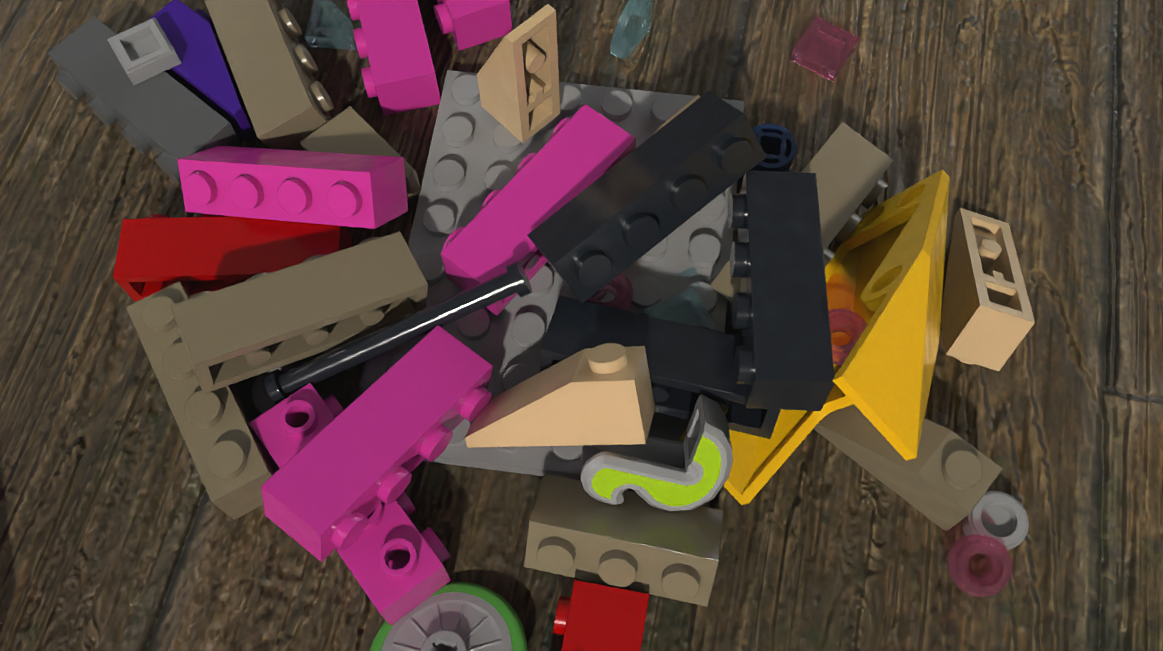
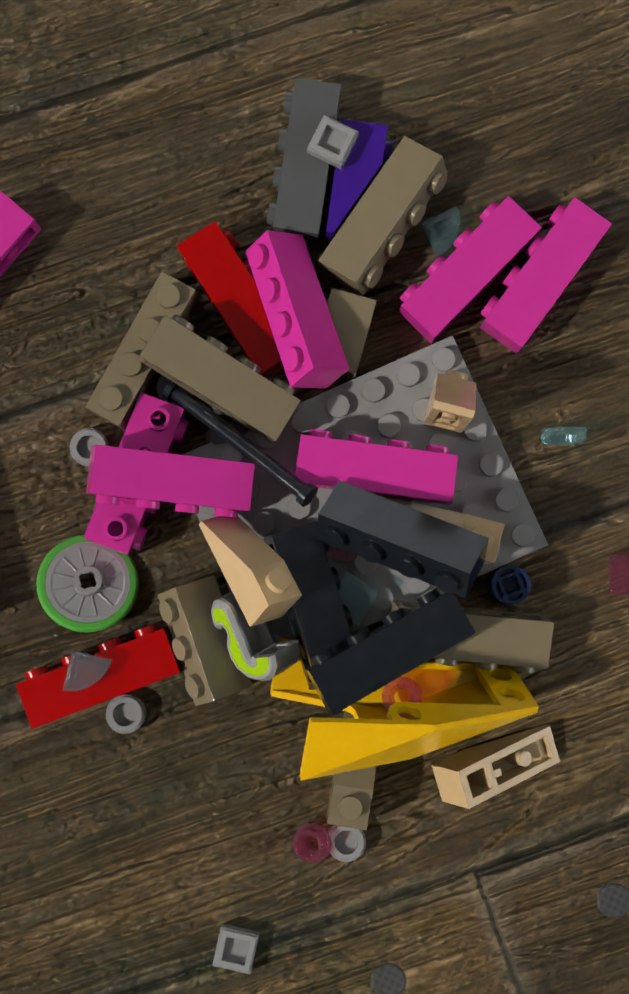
camera: 60 degrees right, 20 degrees up
(270, 551) = (81, 444): none -> light grey tile

